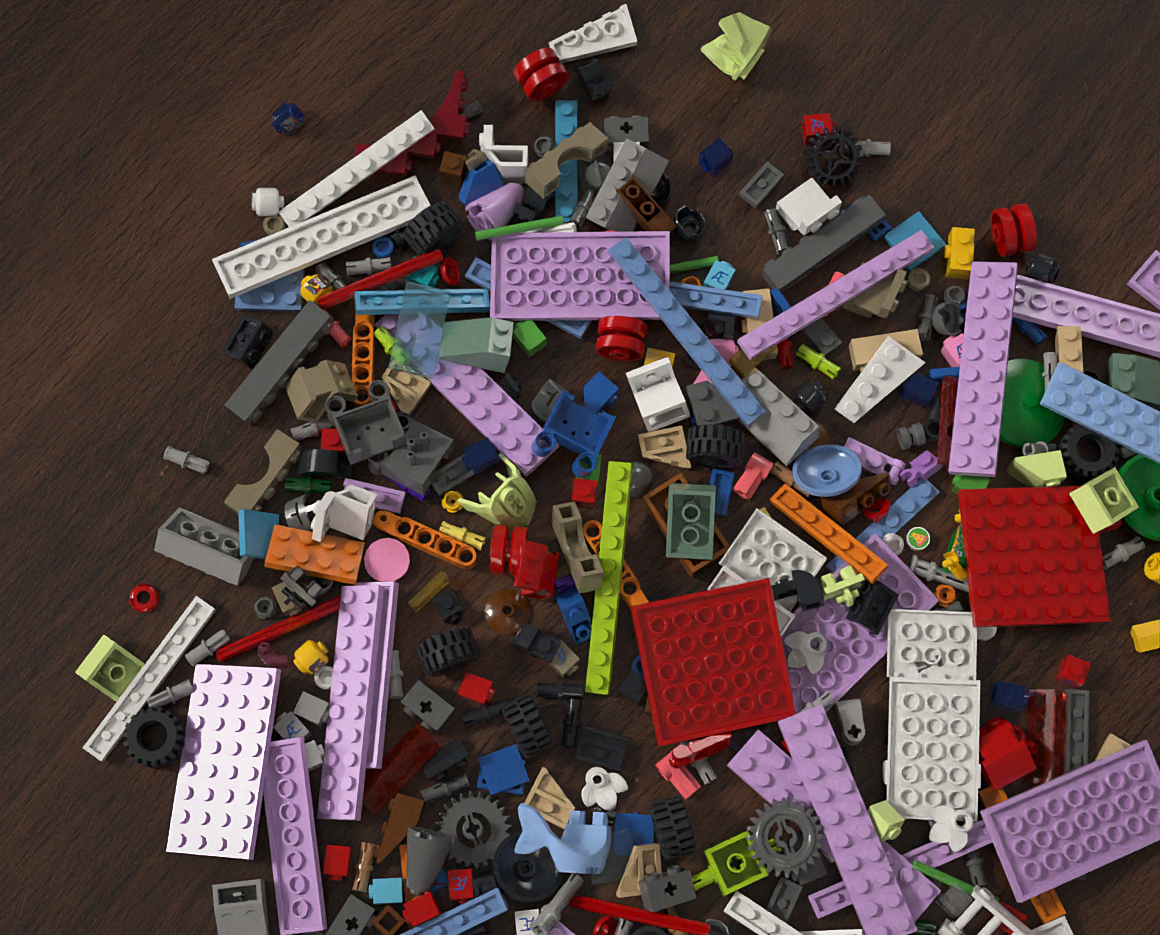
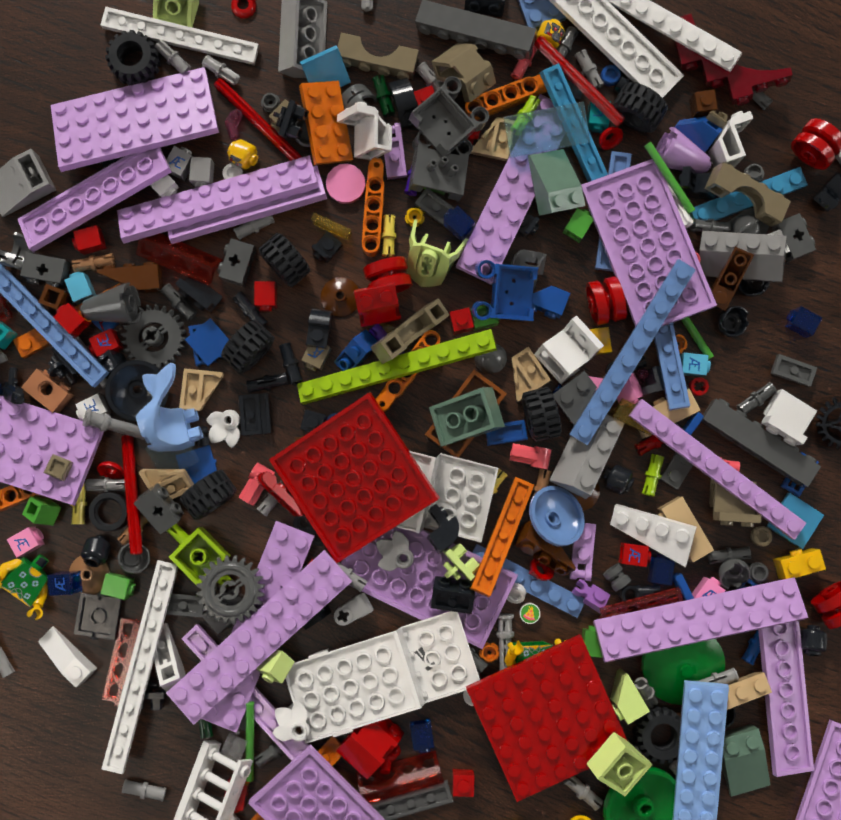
camera: 65 degrees right, 10 degrees up
(746, 276) = (697, 380): none -> red bush
(894, 410) = (634, 554): none -> red brick

